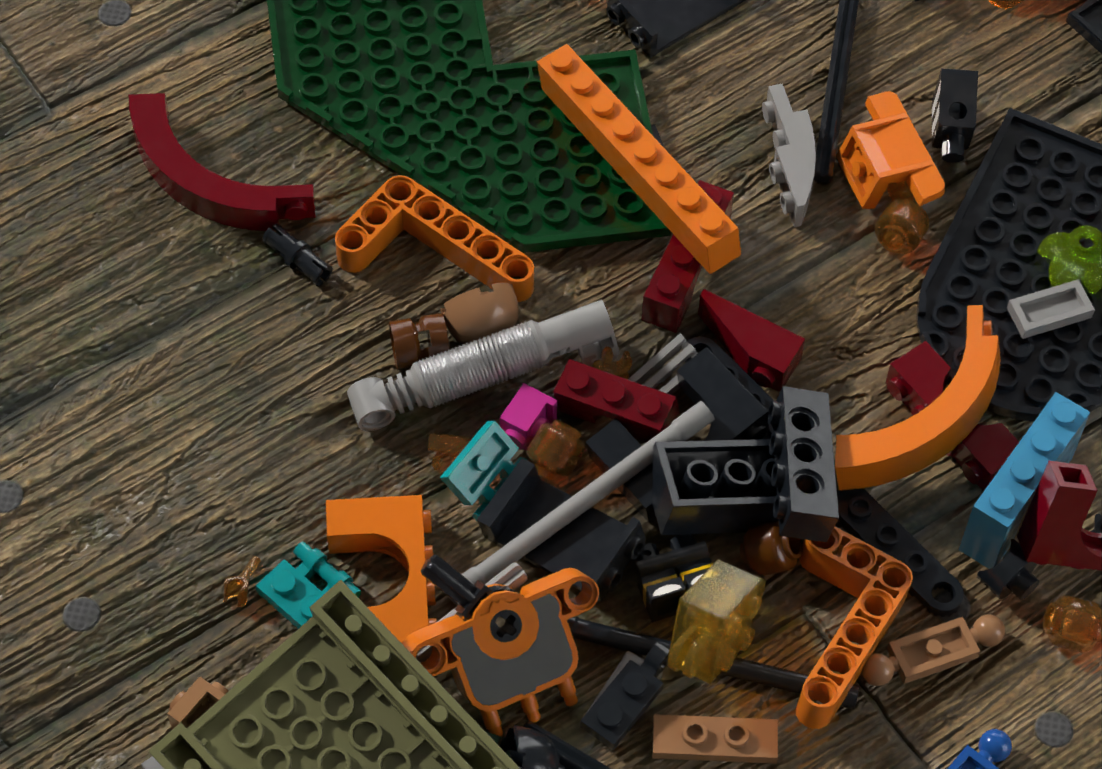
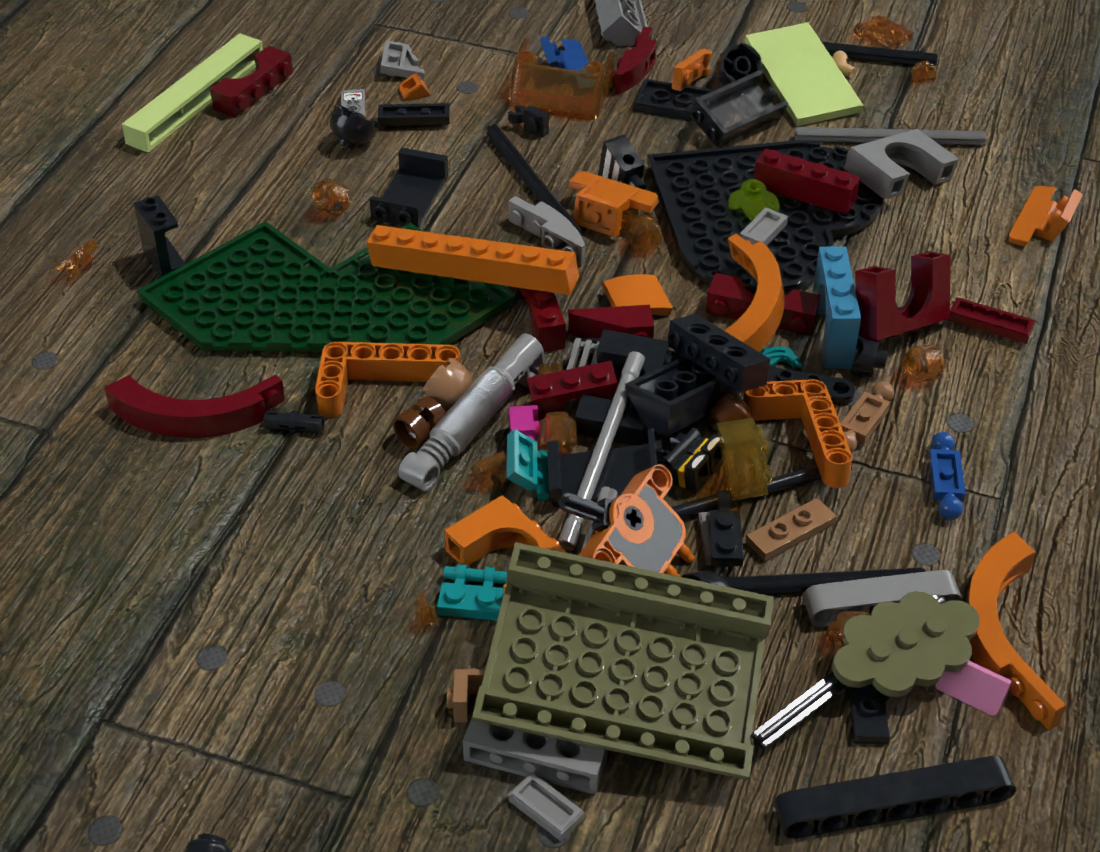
camera: 35 degrees left, 15 degrees down
(817, 311) = (638, 290): none -> orange slope
(910, 494) = (781, 354): none -> teal piece

